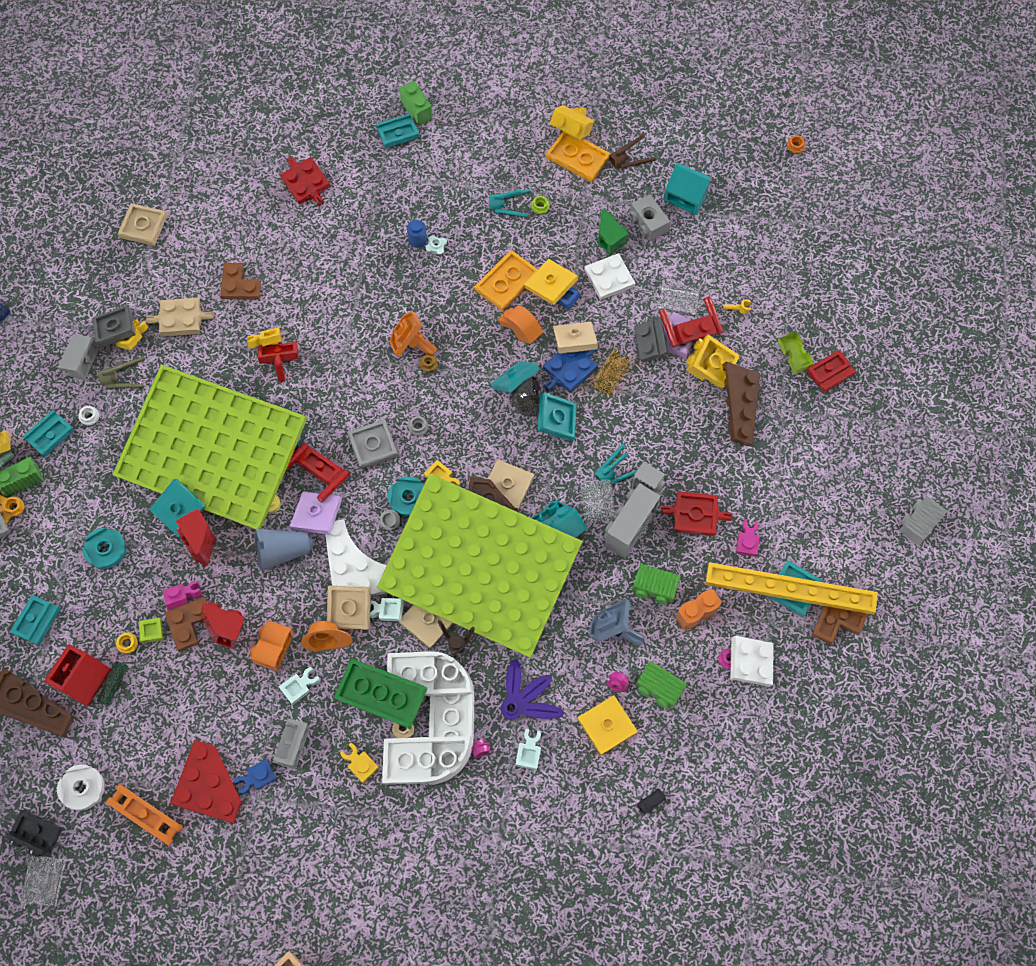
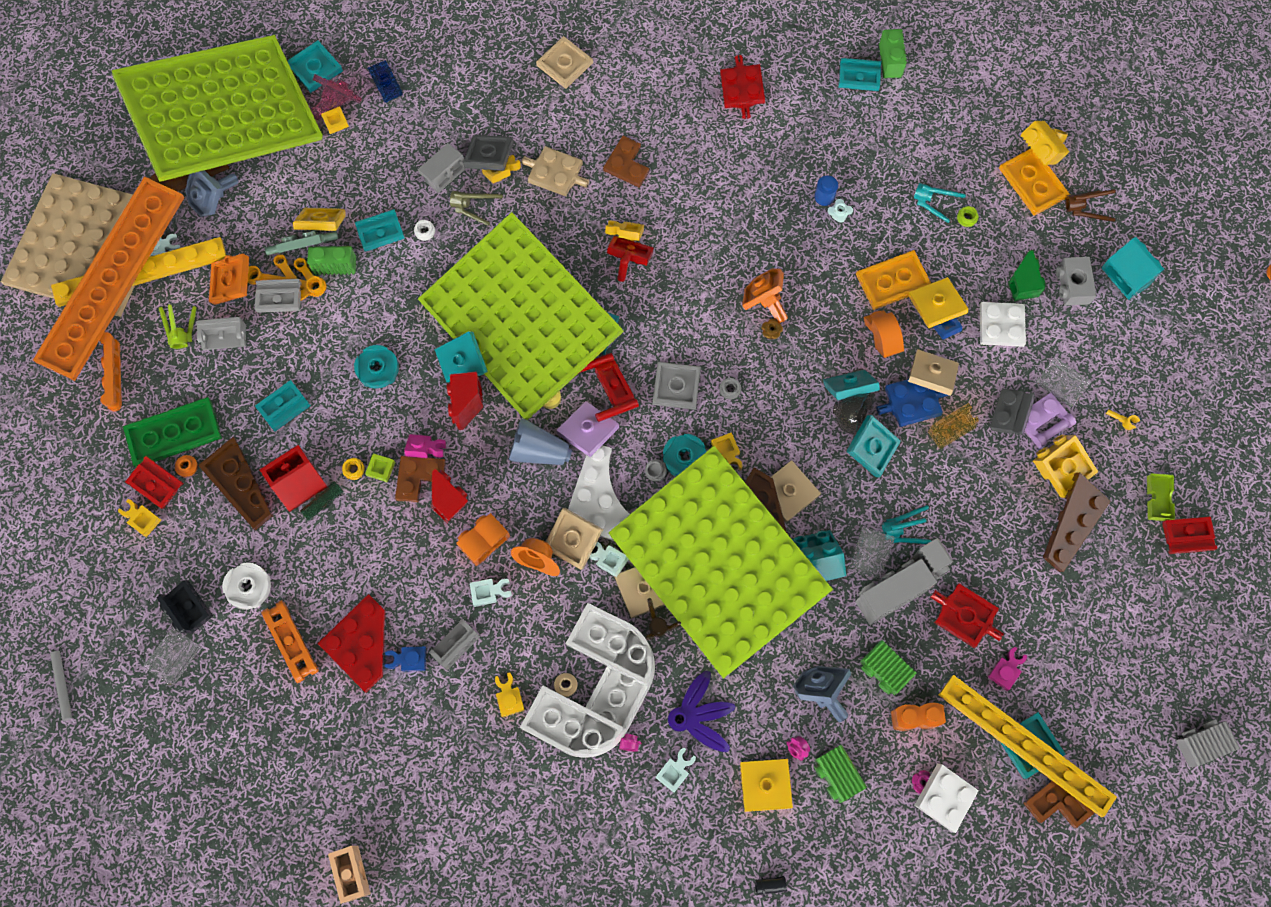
camera: 30 degrees right, 5 degrees up
(380, 693) = (560, 640): green plate -> none
(693, 329) = (1063, 422): red plate -> none

